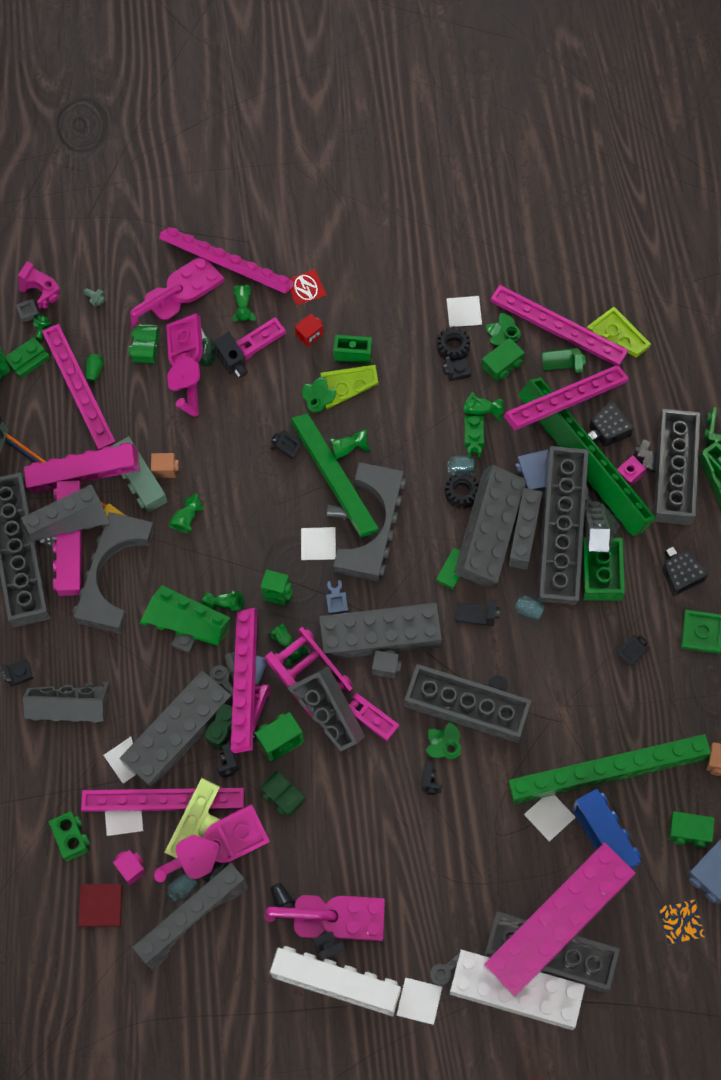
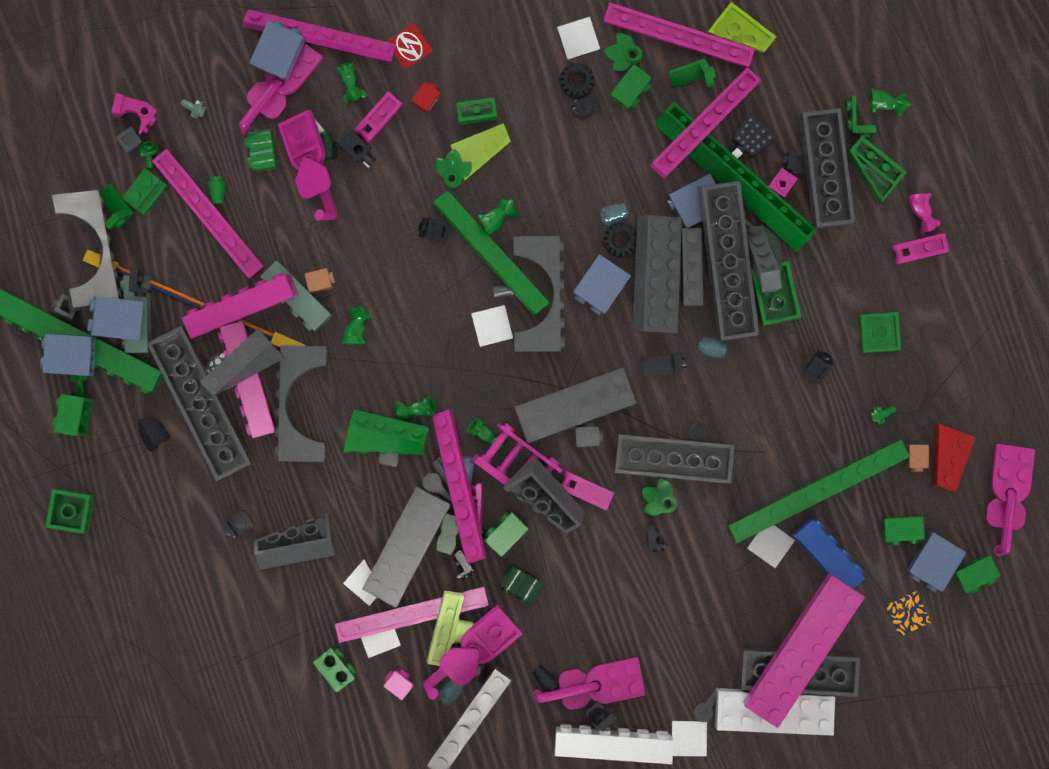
camera: 15 degrees left, 20 degrees up
(100, 905) = (381, 723): dark red tile -> none
(184, 259) = (278, 49): none -> sand blue brick
(276, 587) = (465, 386): green brick -> none
(336, 601) = (525, 383): sand blue plate -> none
(433, 526) = (601, 285): none -> sand blue brick
(446, 576) = (626, 325): green tile -> none
(474, 435) = (619, 177): green plate -> none
(480, 406) = (619, 145): green animal -> none
(682, 571) = (850, 277): black torso -> none
(687, 709) = (878, 414): none -> green plate

